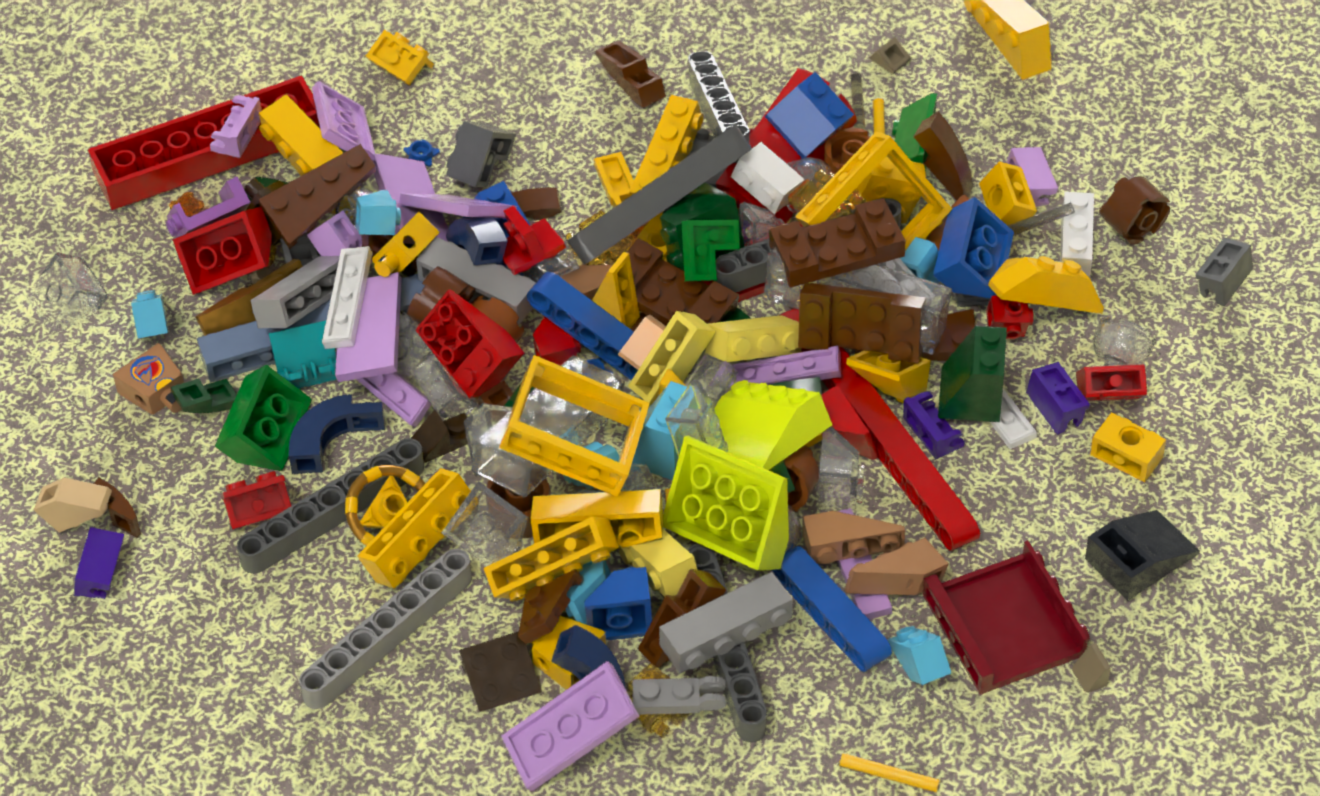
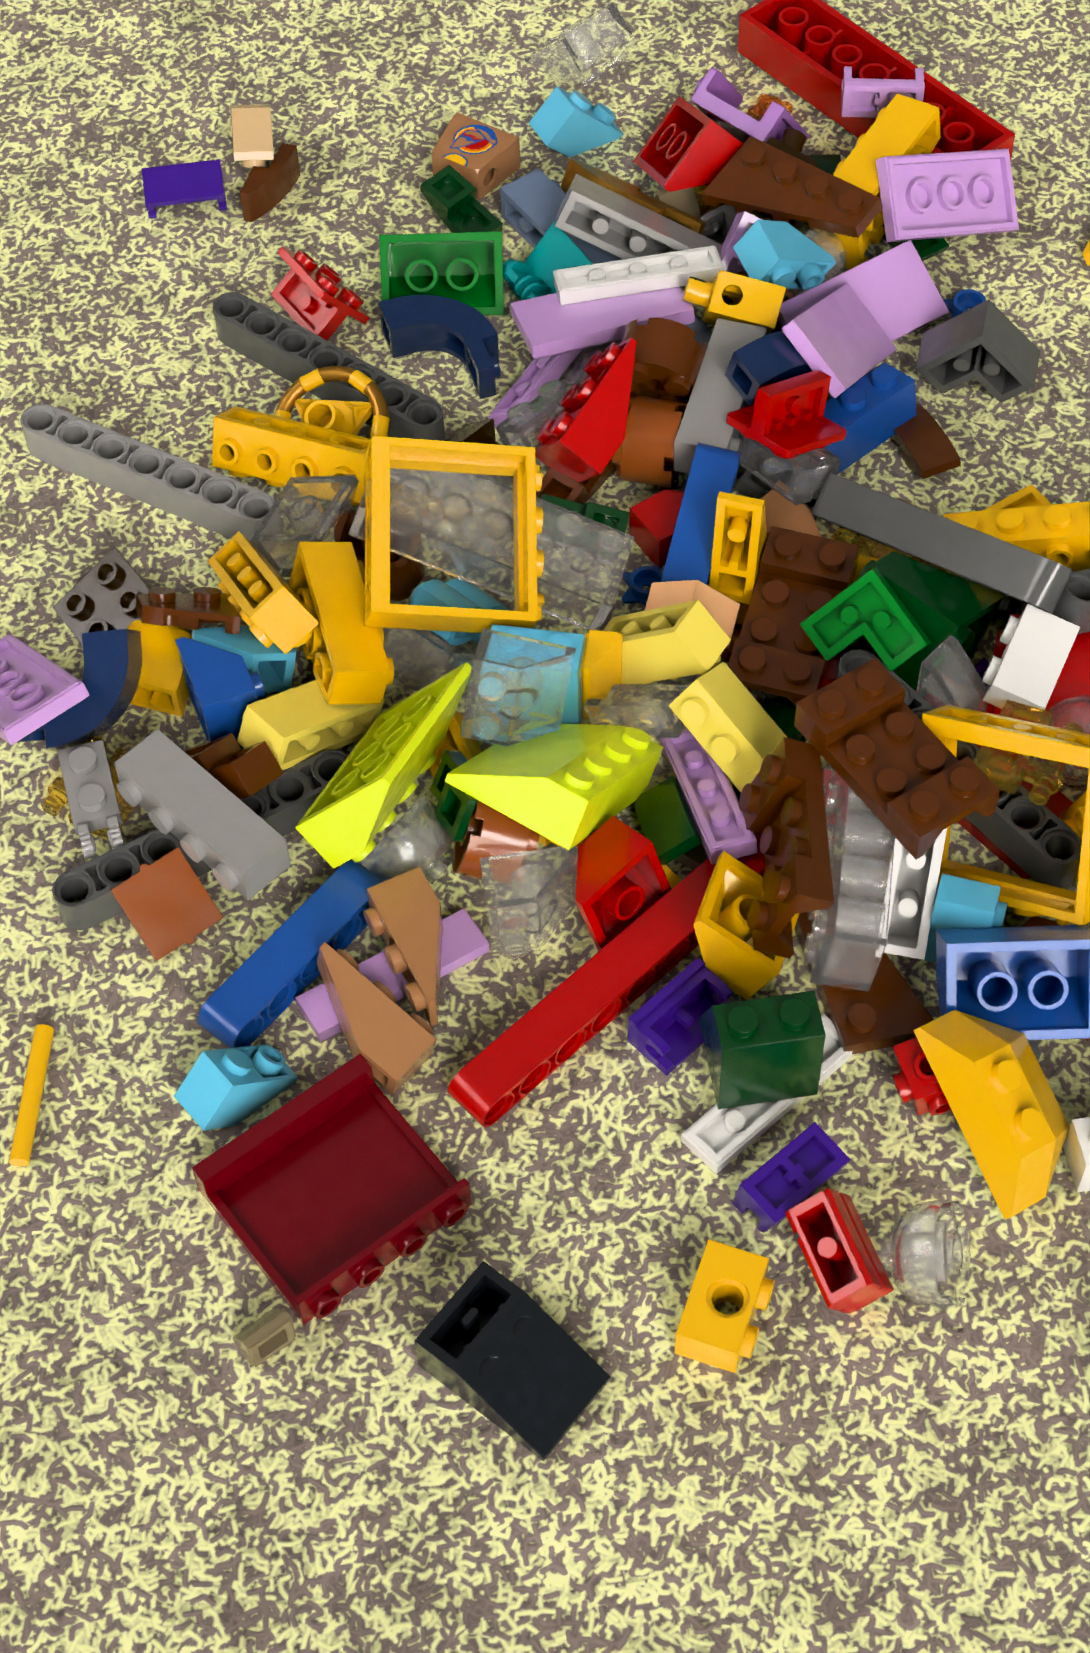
camera: 75 degrees right, 5 degrees up
(773, 668) = (166, 904): none -> dark orange piece

